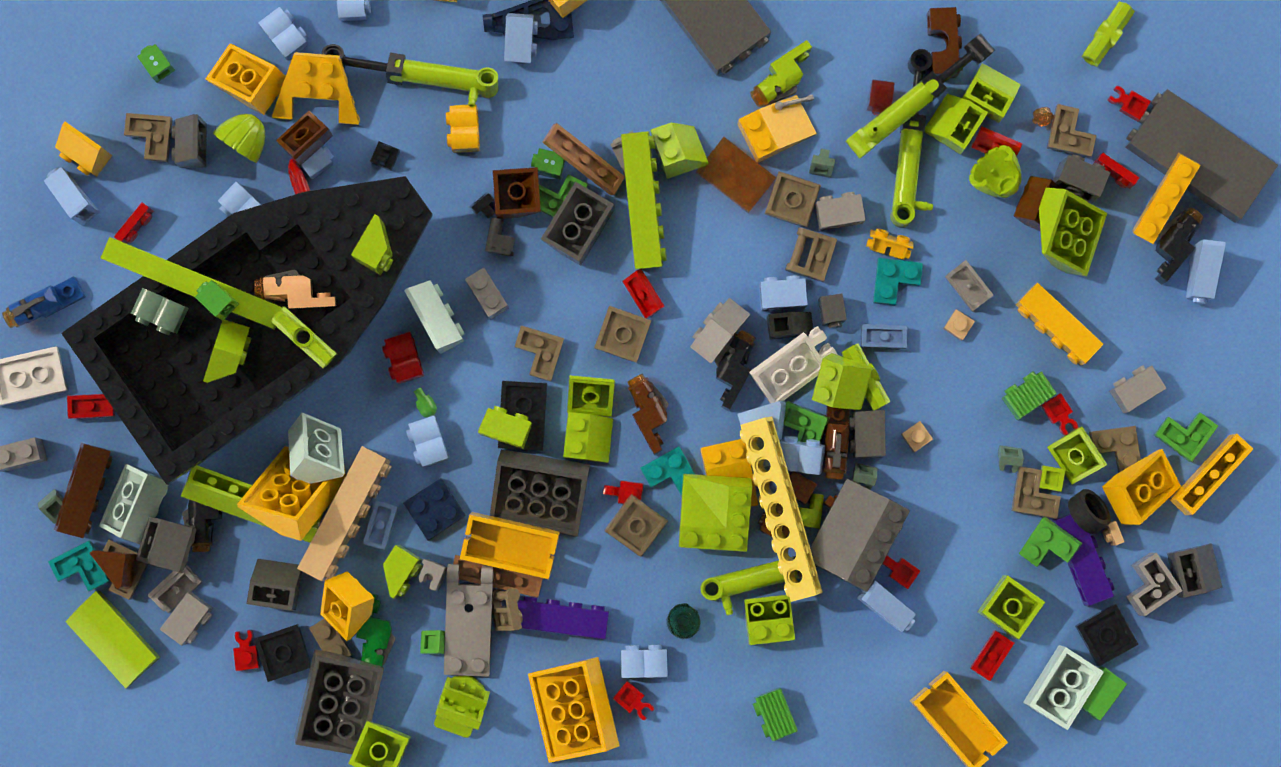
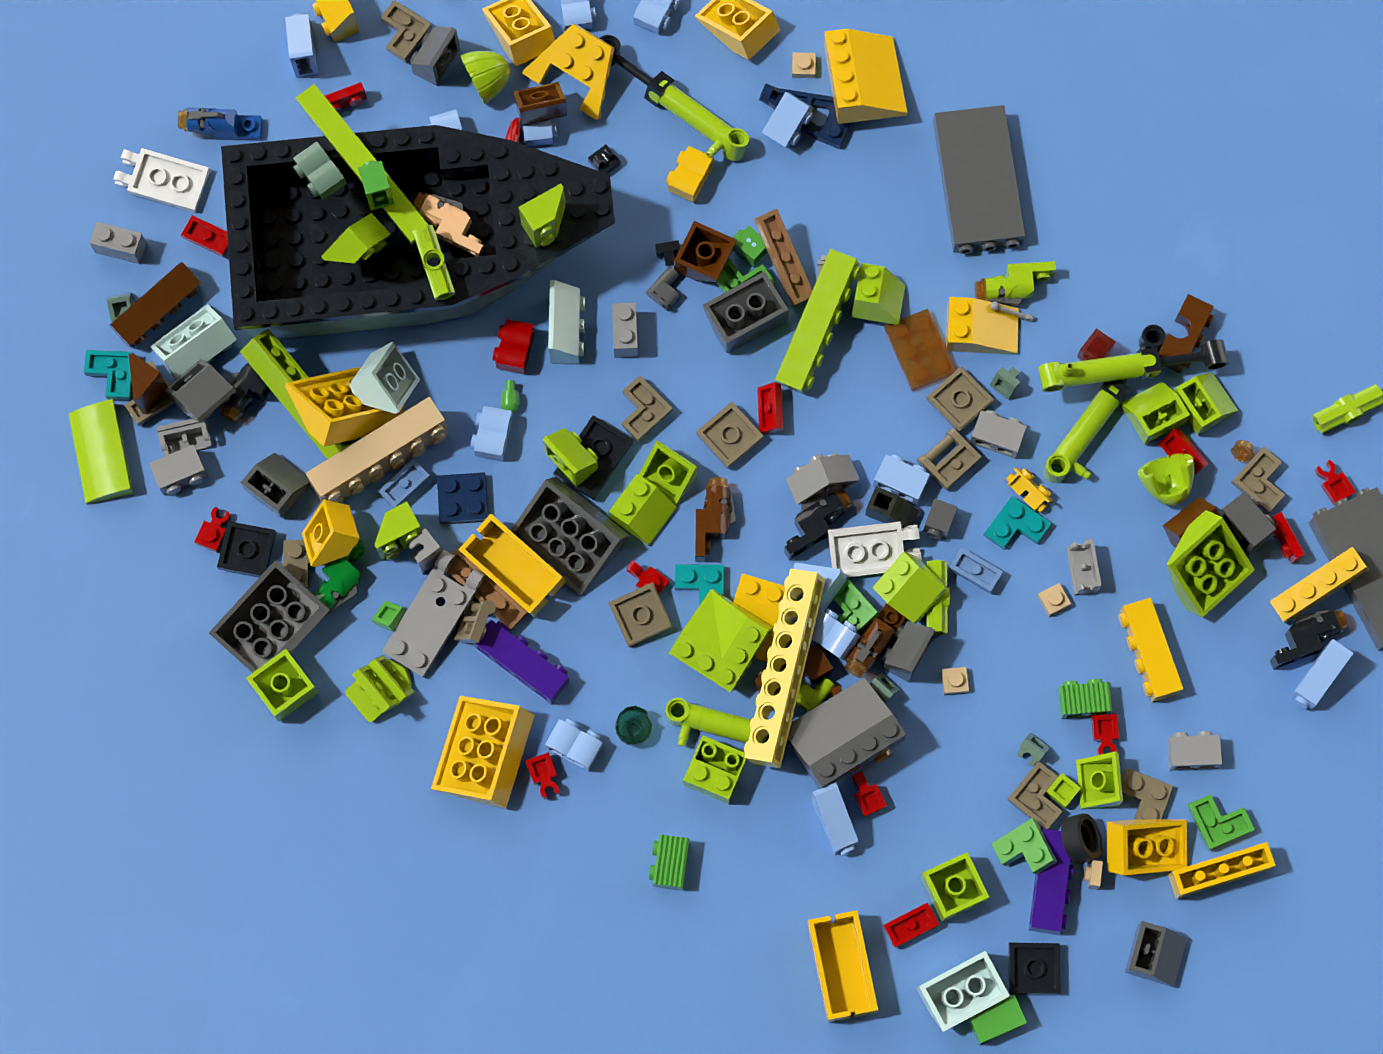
camera: 35 degrees right, 10 degrees down
(1158, 585) = (1109, 948): light grey brick -> none

